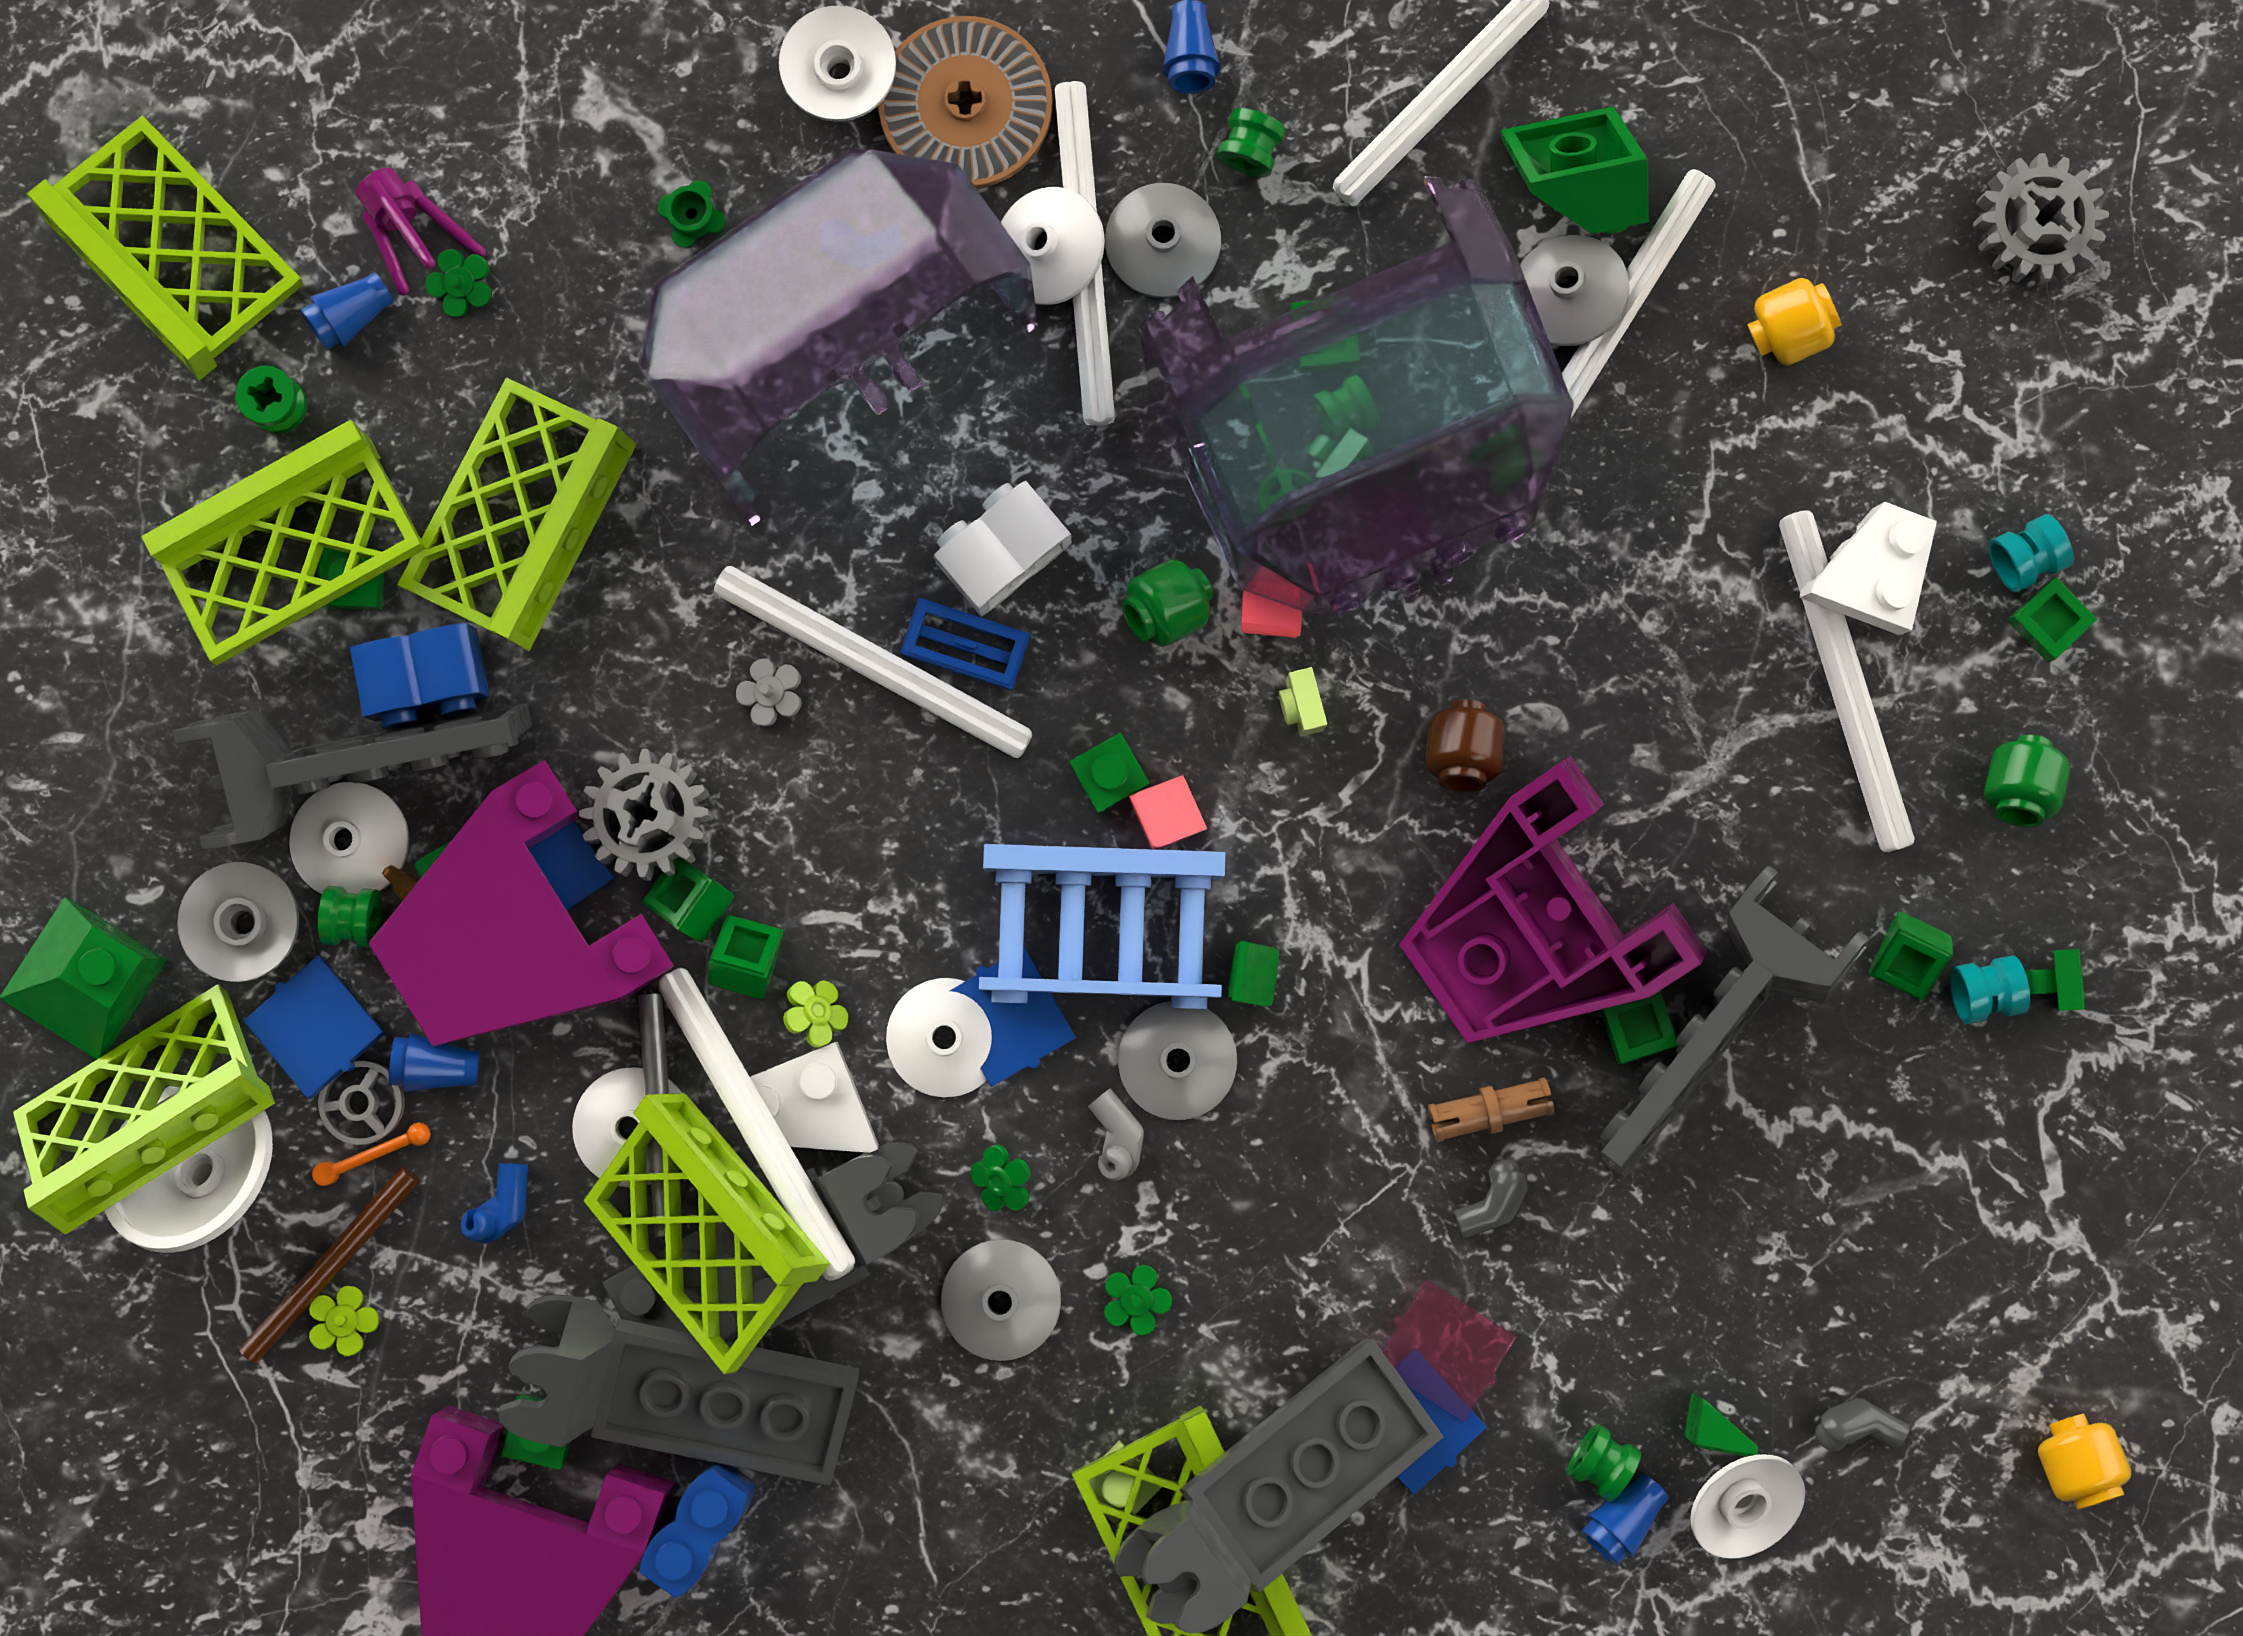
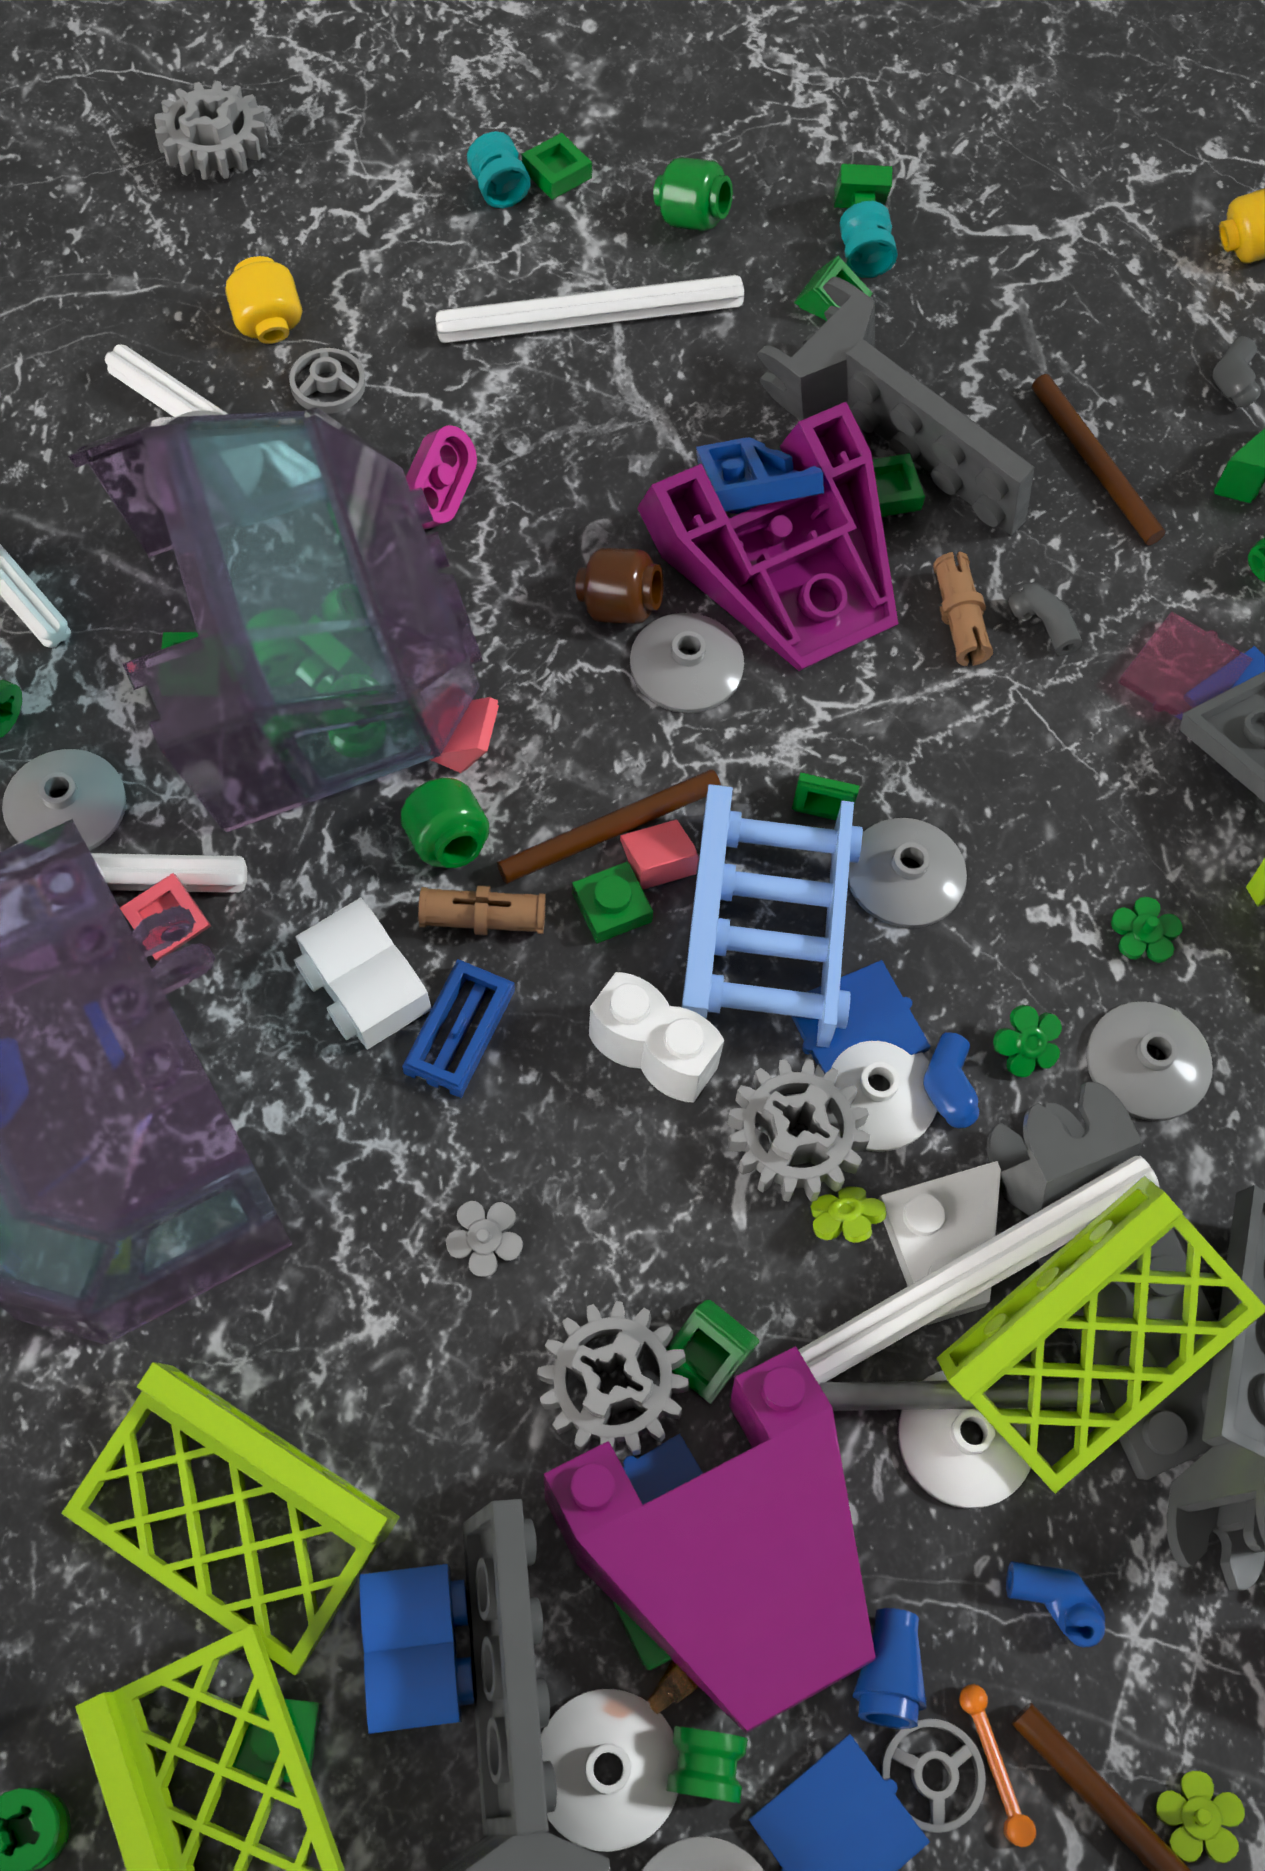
camera: 90 degrees left, 20 degrees down
(744, 957) = (780, 1289): green slope -> none
(873, 661) = (460, 1128): white axle -> none
(874, 988) = (817, 1145): none -> light grey gear
(949, 1101) = (947, 1083): none -> blue arm
(970, 809) = (667, 1042): none -> white brick
(1041, 358) = (163, 896): none -> coral plate
(1082, 609) = (481, 910): none -> medium nougat pin
(1122, 1138) = (986, 925): light grey arm -> none
(1192, 764) = (606, 827): none -> reddish brown bar
(1302, 702) = (562, 713): yellowish green plate -> none
(1371, 844) = (682, 680): none -> light grey dish
(1580, 545) = (445, 480): none -> dark pink plate
(1584, 168) = (81, 411): green slope -> none
(1617, 871) = (753, 475): none -> blue wing
(1706, 419) = (324, 361): none -> light grey piece
(1716, 1259) = (1098, 460): none -> reddish brown bar
(1877, 570) = (497, 268): white wing -> none

